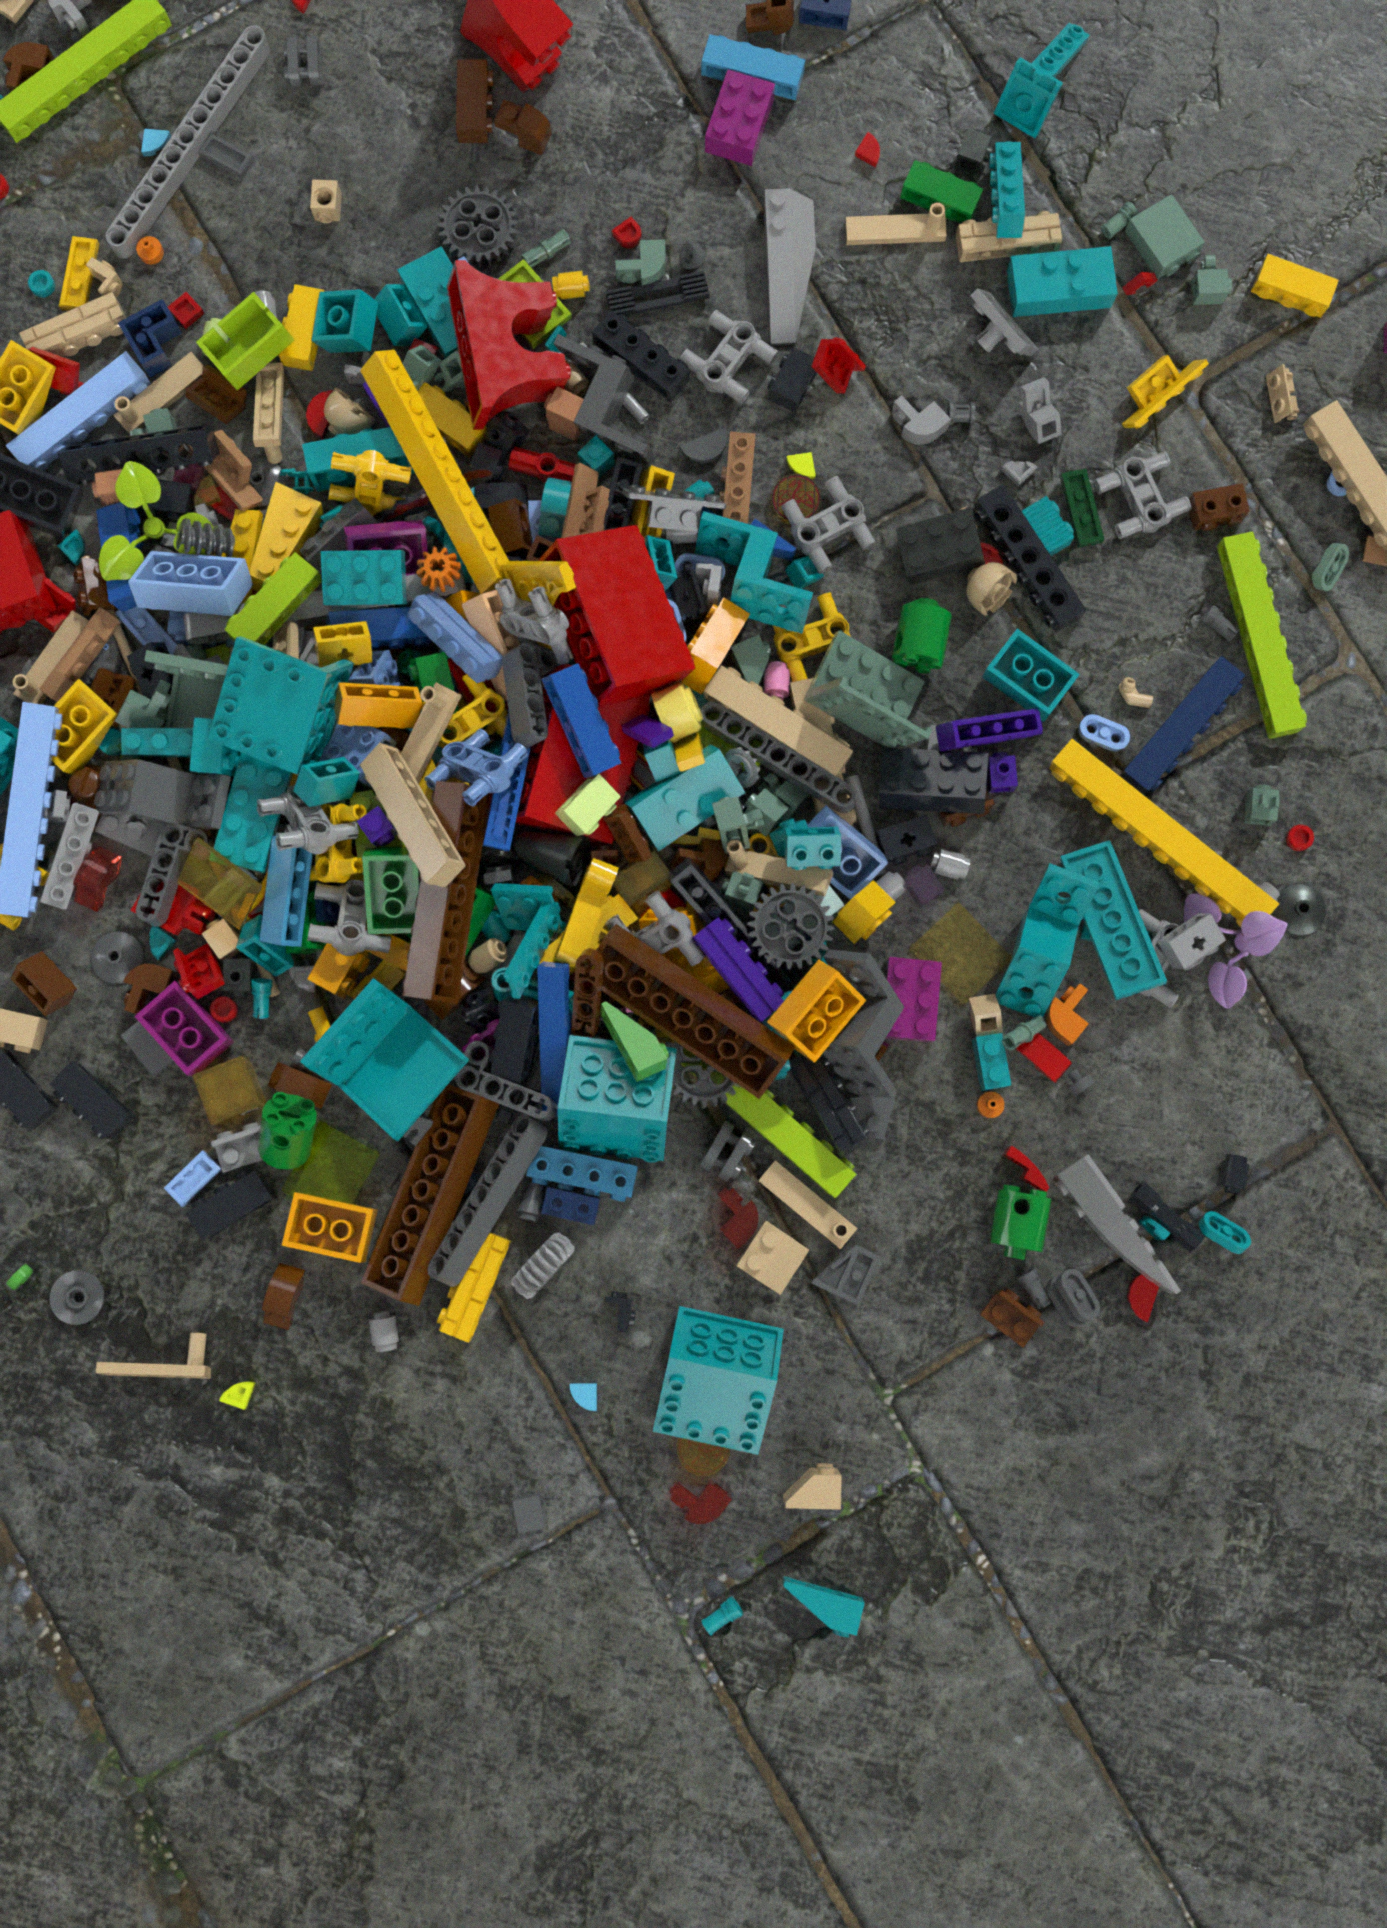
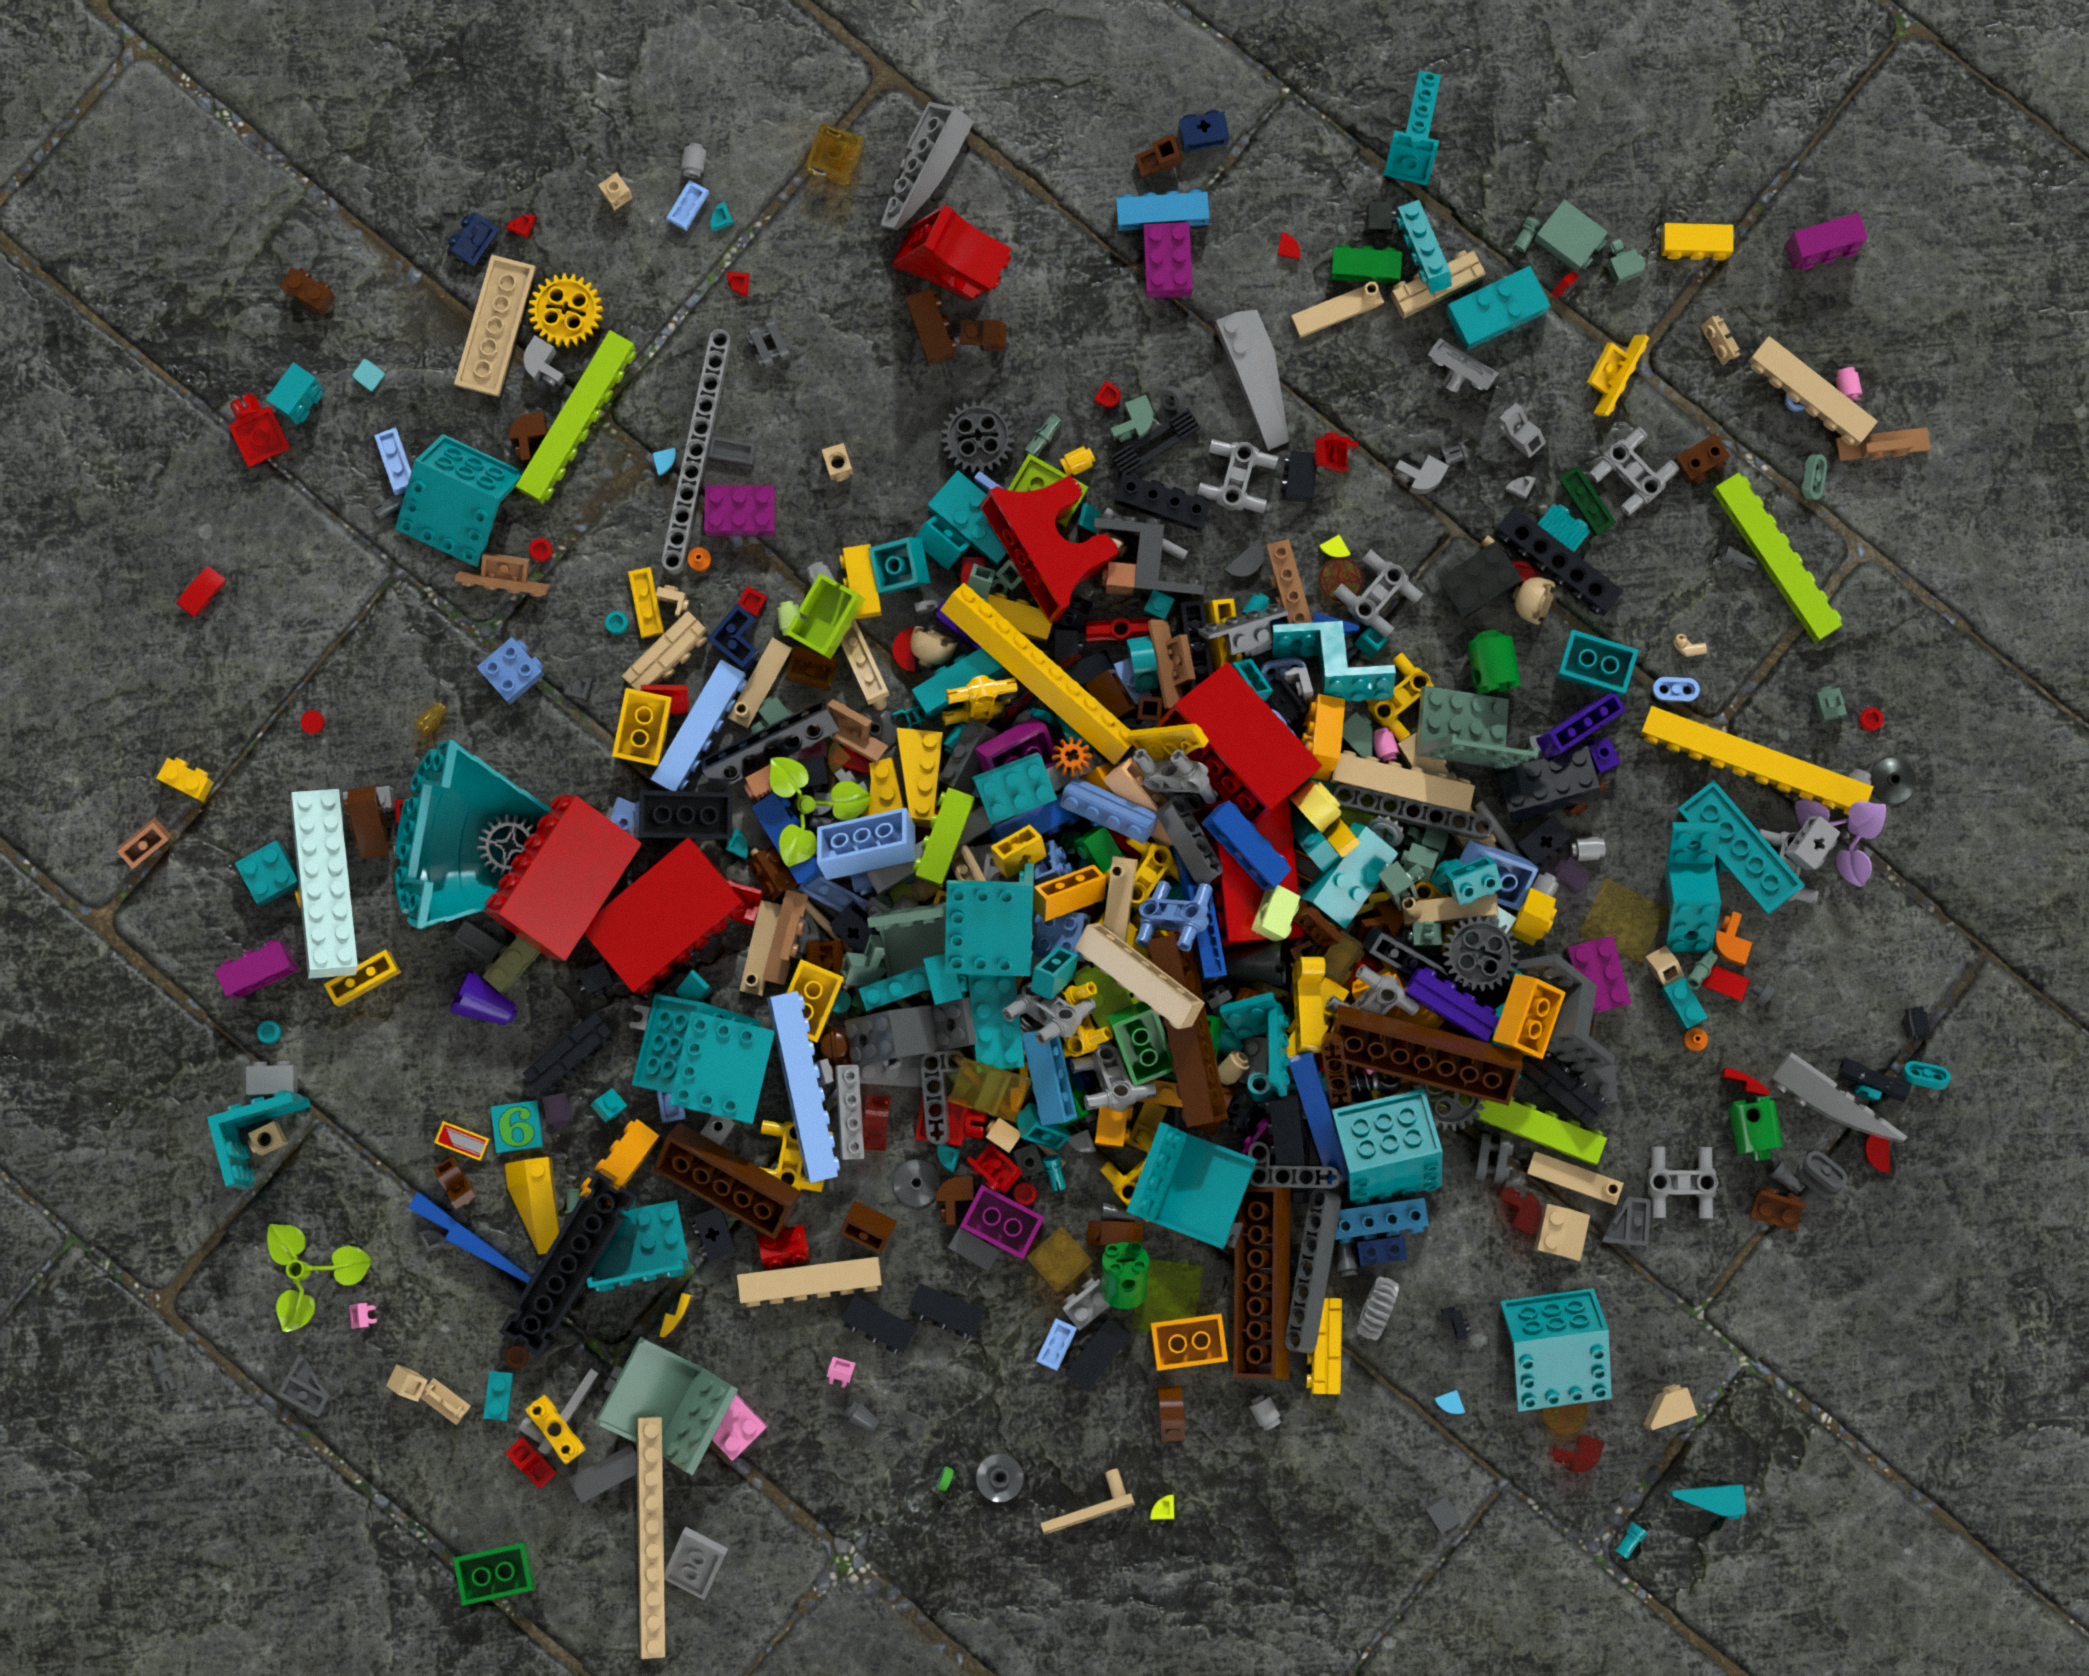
camera: 20 degrees left, 0 degrees up
(205, 538) = (863, 801): dark grey piece -> none
(207, 213) = (740, 510): none -> magenta brick
(377, 827) = (1111, 995): dark purple brick -> none
(635, 1043) = (1391, 1097): bright green slope -> none
(647, 730) = (1301, 832): dark purple tile -> none
(920, 1251) = (1682, 1182): none -> light grey piece
(1182, 725) = (1739, 659): dark blue brick -> none

